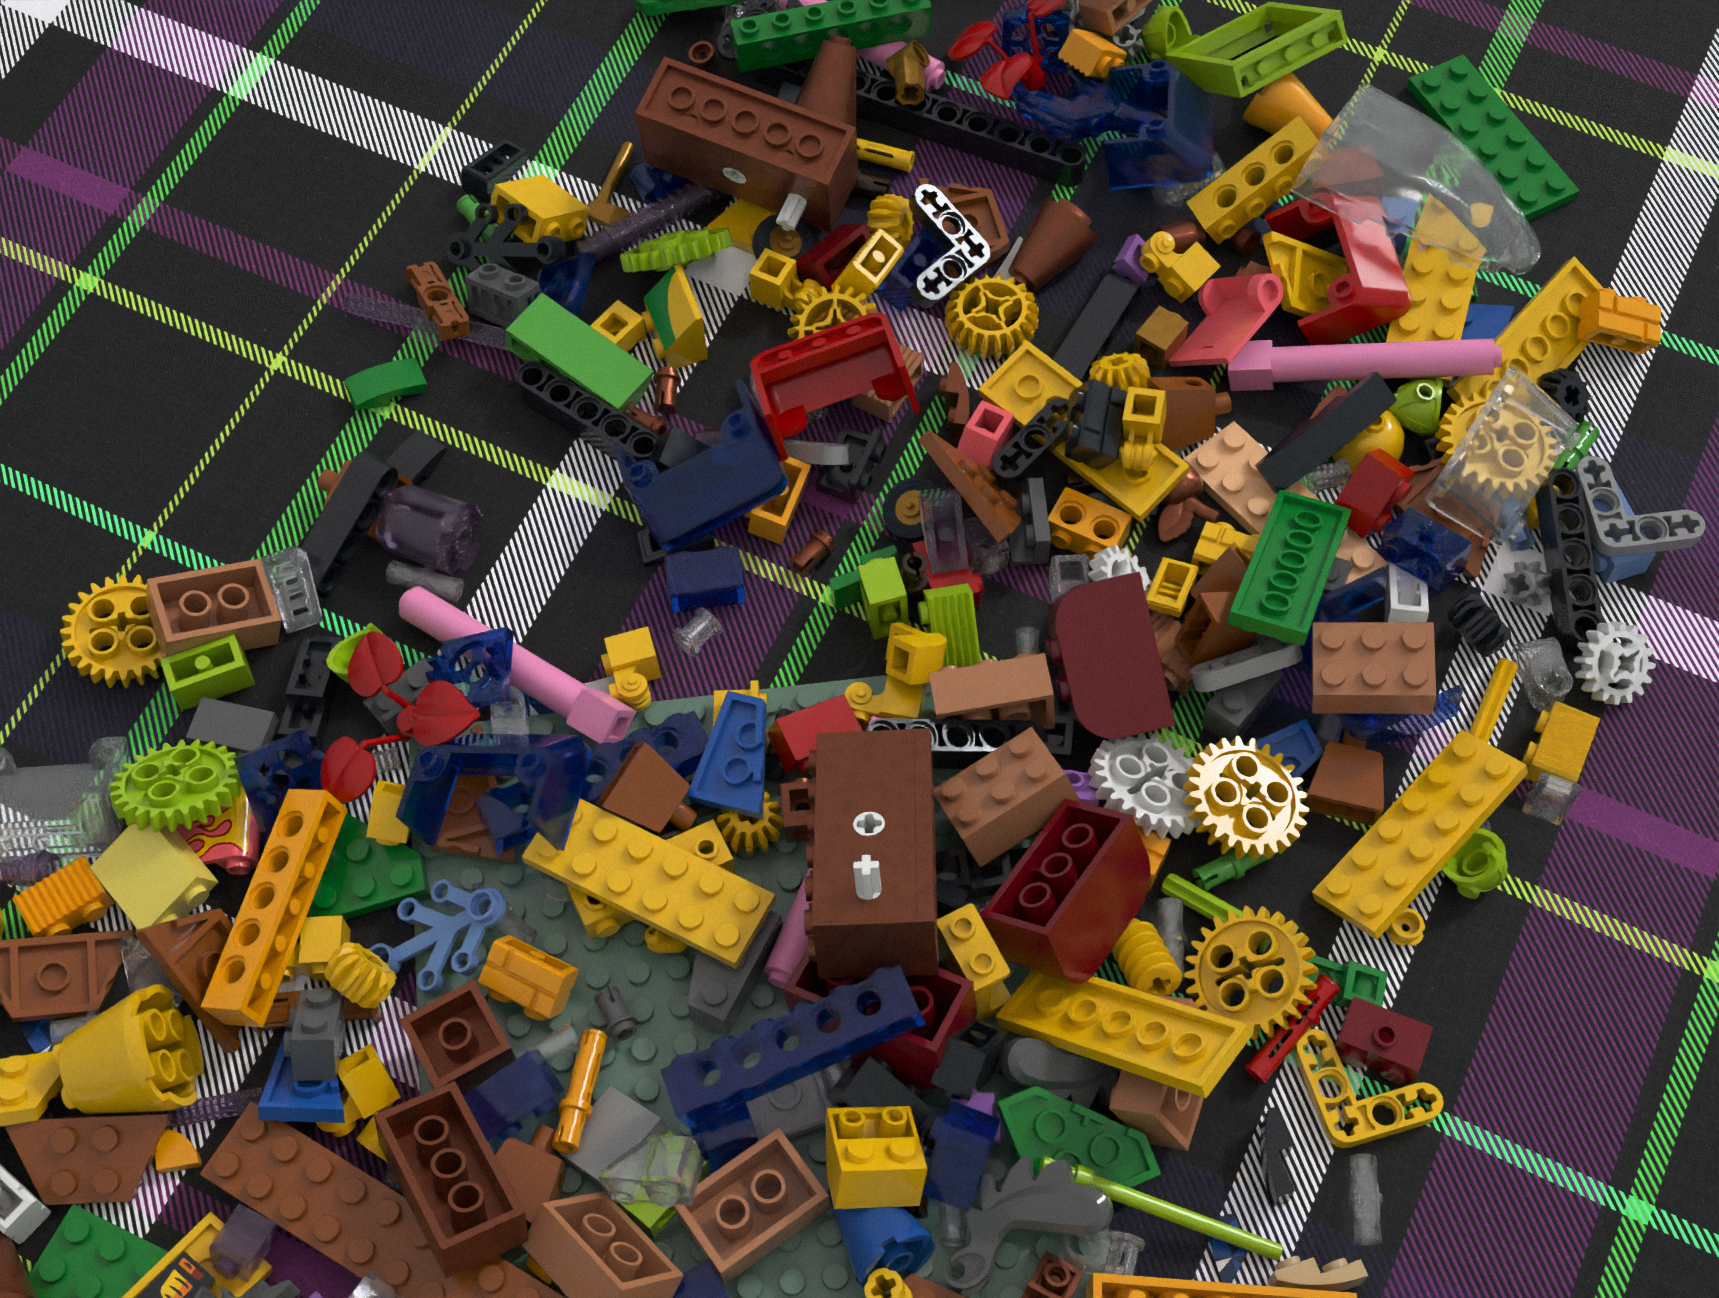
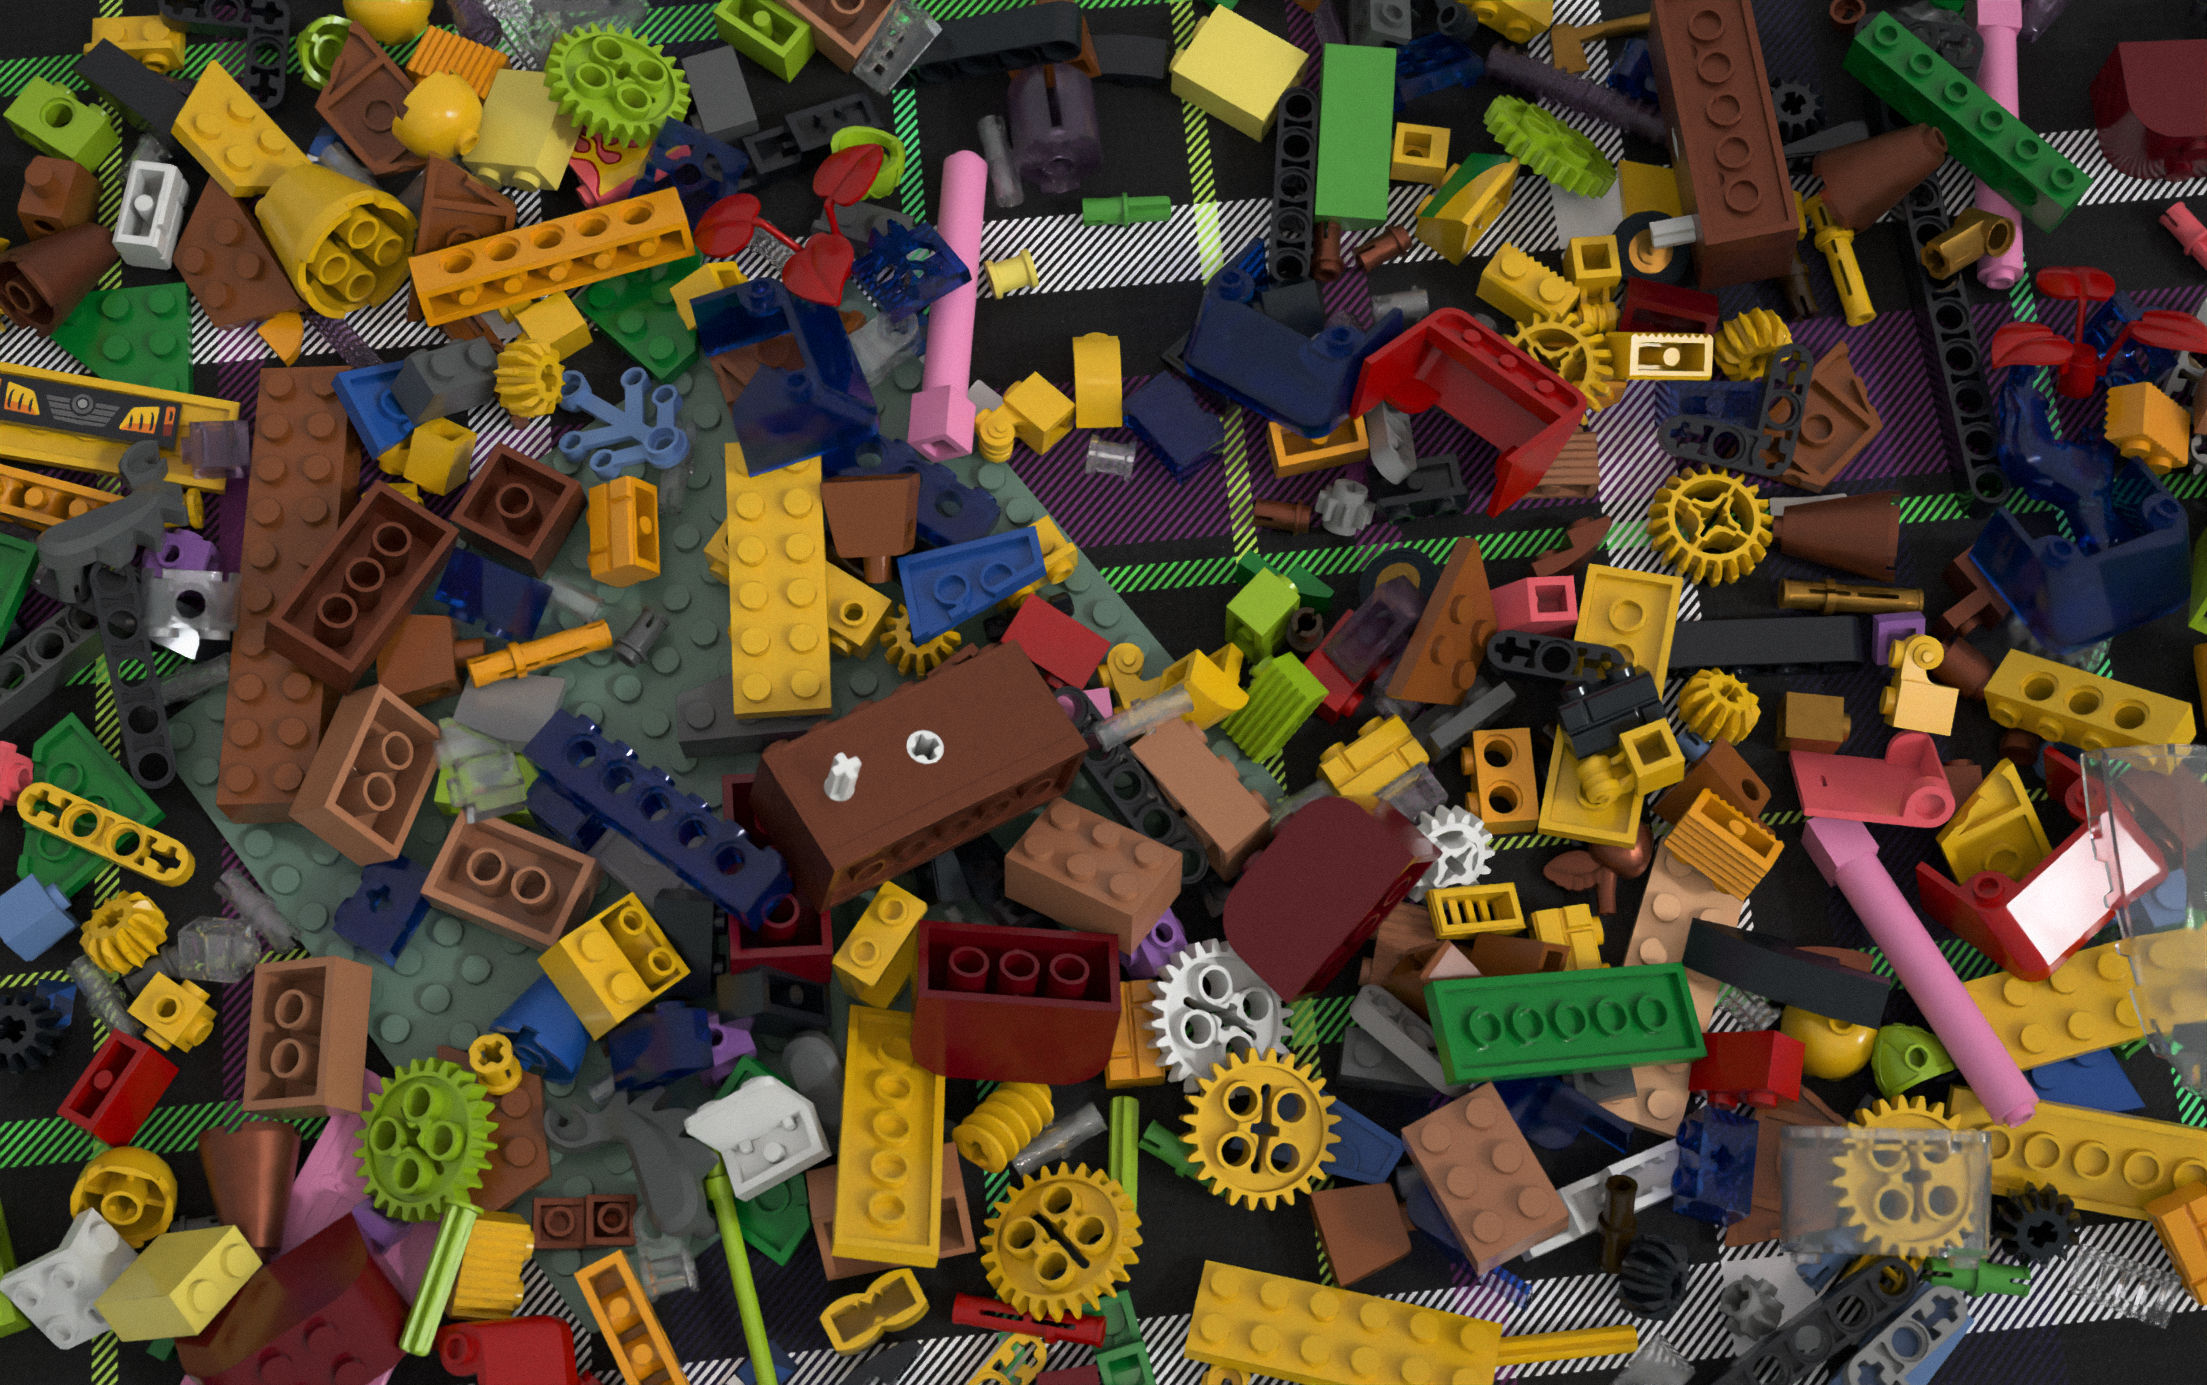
camera: 55 degrees right, 10 degrees up
(105, 923) = (440, 117): none -> yellow cylinder
(475, 401) = (1237, 71): none -> light yellow brick
(516, 616) = (1011, 274): none -> light yellow bush
(521, 525) = (1125, 210): none -> bright green axle
(636, 604) = (1097, 381): none -> yellow brick
(718, 395) = (1412, 303): none -> clear pin
(759, 323) = (1525, 287): none -> yellow brick
(835, 510) = (1345, 507): none -> light grey gear
(922, 690) = (1143, 716): none -> clear pin
(1027, 593) = (1373, 760): none -> yellow brick
(1072, 1116) = (762, 1134): none -> white bracket
(1083, 280) = (1830, 597): none -> pearl gold pin
(1133, 204) = (1978, 603): none -> copper brick
(1219, 420) = (1723, 845): none -> light orange brick
(1233, 1136) = (862, 1318): none -> yellow brick
(1425, 611) = (1616, 1222): none -> dark brown pin
(1640, 362) = (2149, 1275): none -> clear slope

